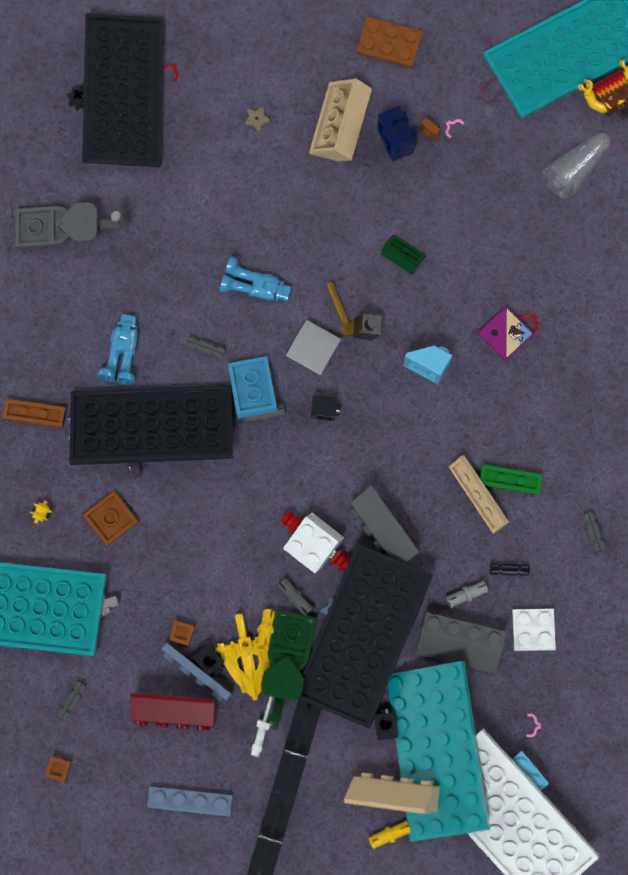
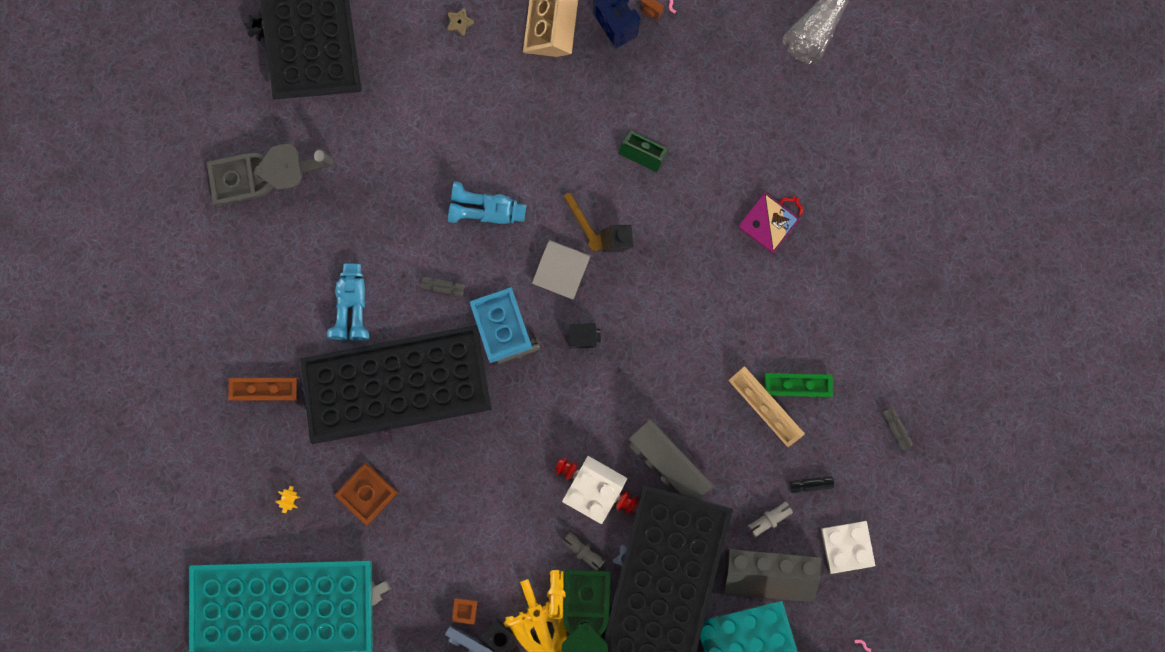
camera: 15 degrees left, 5 degrees up
(429, 362) = (692, 269): medium azure slope -> none

